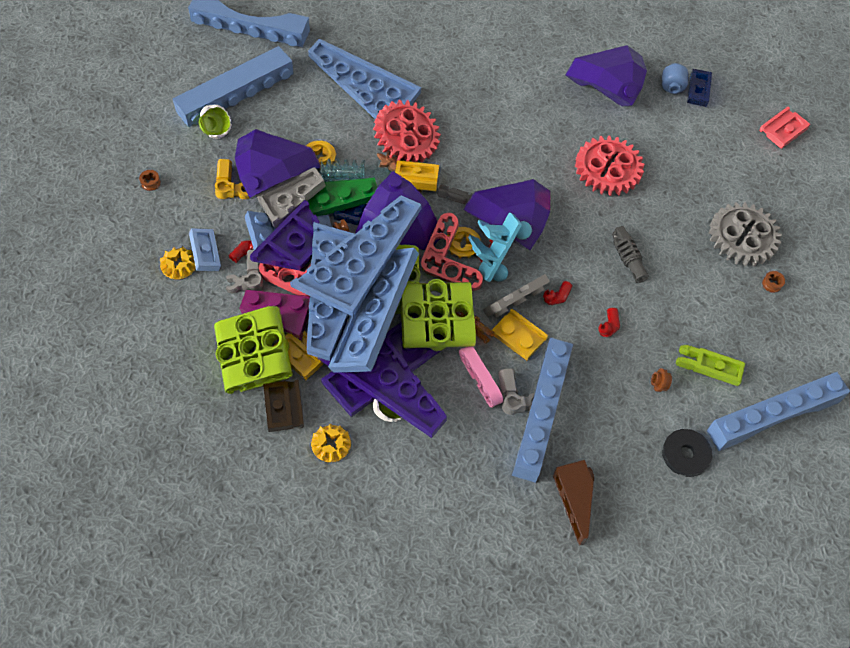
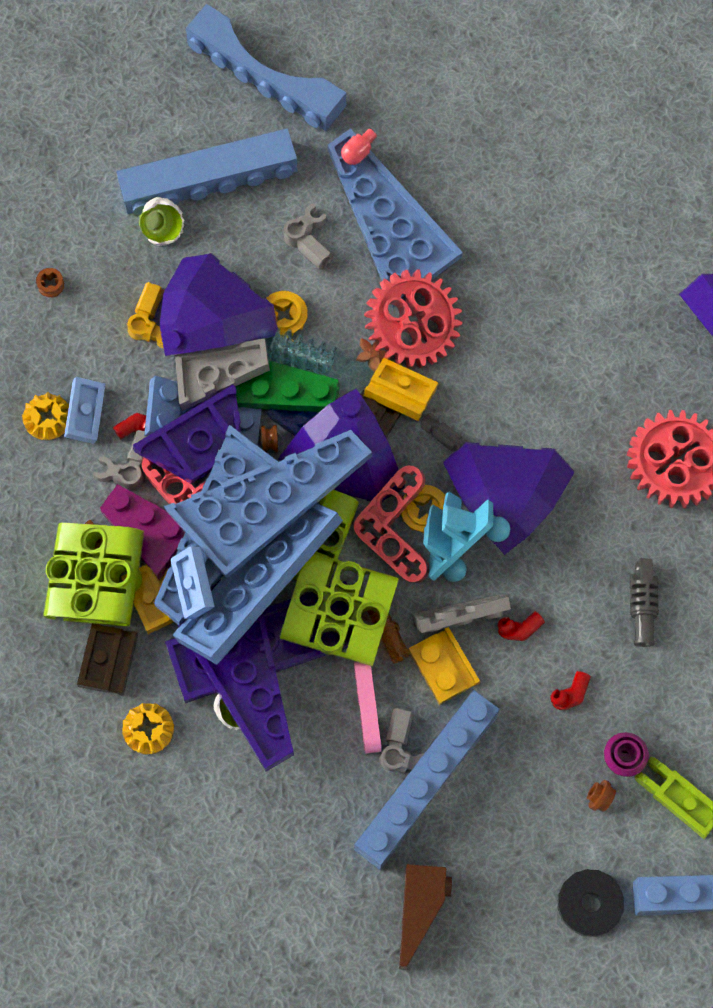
camera: 25 degrees right, 10 degrees up
(310, 106) = (298, 234): none -> light grey bar
(329, 45) = (358, 147): none -> coral cylinder
(330, 324) = (192, 582): none -> light blue plate
(665, 348) = (630, 763): none -> magenta cone

